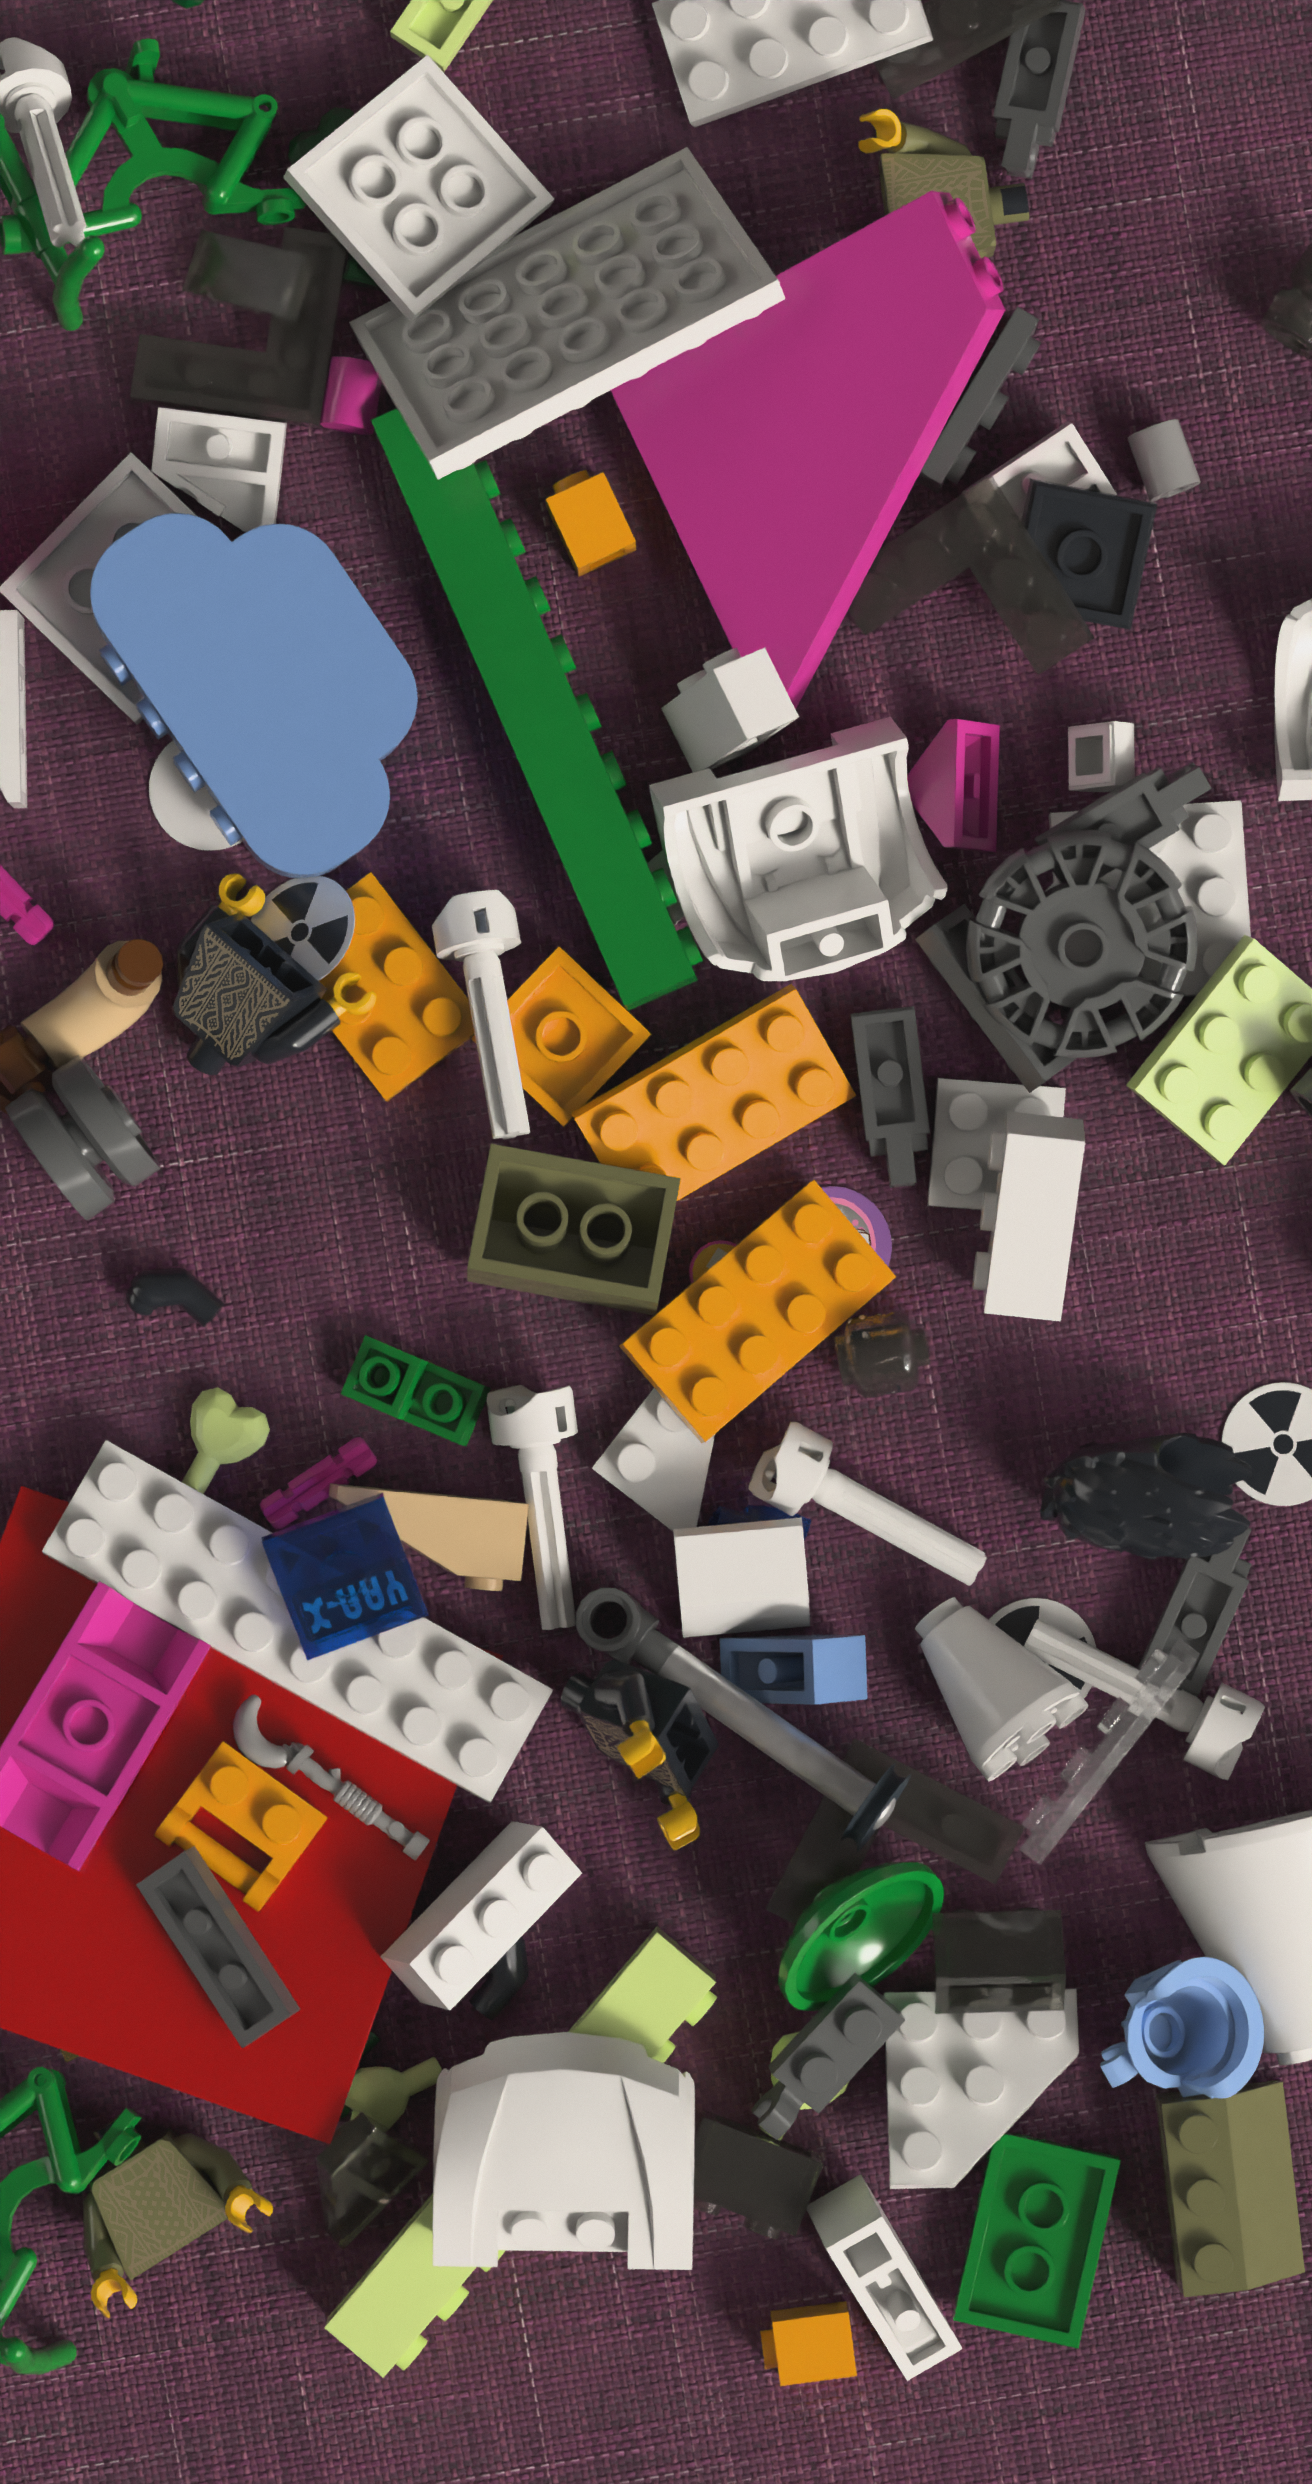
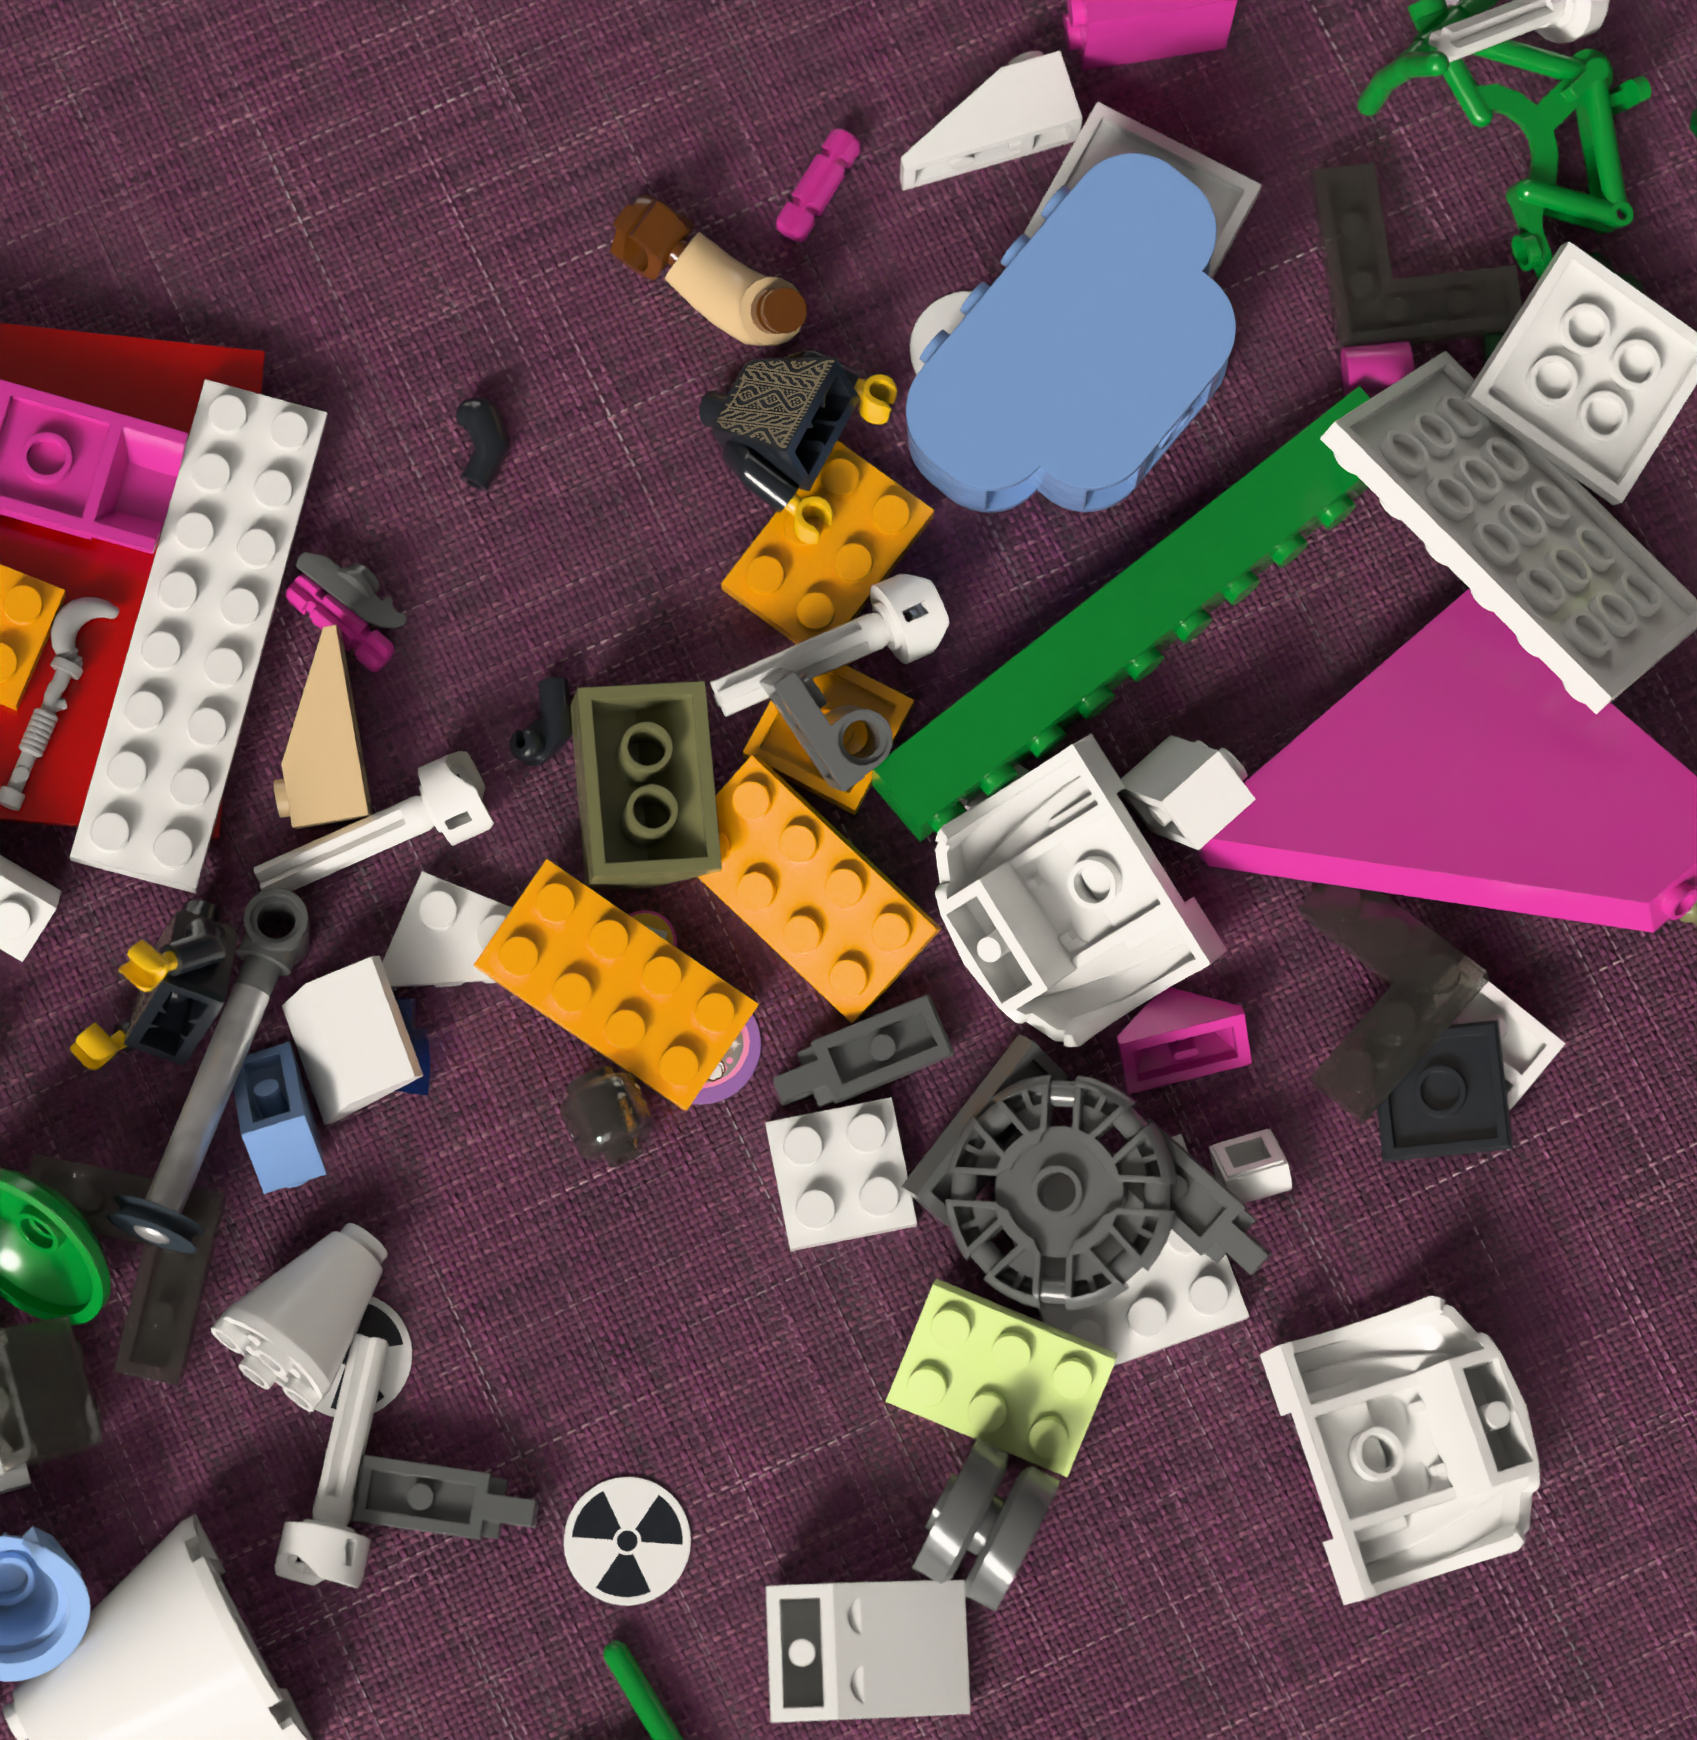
camera: 75 degrees right, 10 degrees down
(90, 1132) = (604, 308): dark grey wheel -> none
(222, 462) = (1278, 271): white wing -> none
(222, 1435) = (361, 521): yellowish green rock -> none
(248, 275) = (1459, 244): clear smoke tile -> none
(289, 1461) = (353, 588): none -> dark grey piece
(310, 922) = (868, 464): white sticker -> none
(345, 1576) = (250, 655): clear blue tile -> none
(415, 1391) = (452, 687): green slope -> none
(484, 1308) = (548, 731): none -> black arm
(572, 1039) = (822, 735): none -> dark grey plate
(589, 521) = (1326, 619): light orange brick -> none
(803, 1473) = (470, 1065): white piece -> none
(981, 402) = (1558, 953): dark grey plate -> none
(1030, 1215) = (780, 1216): white brick -> none
(1122, 1728) = (297, 1448): clear plate -> none
(1149, 1496) = (536, 1412): black head -> none
(1164, 460) = (1557, 1147): light grey piece -> none

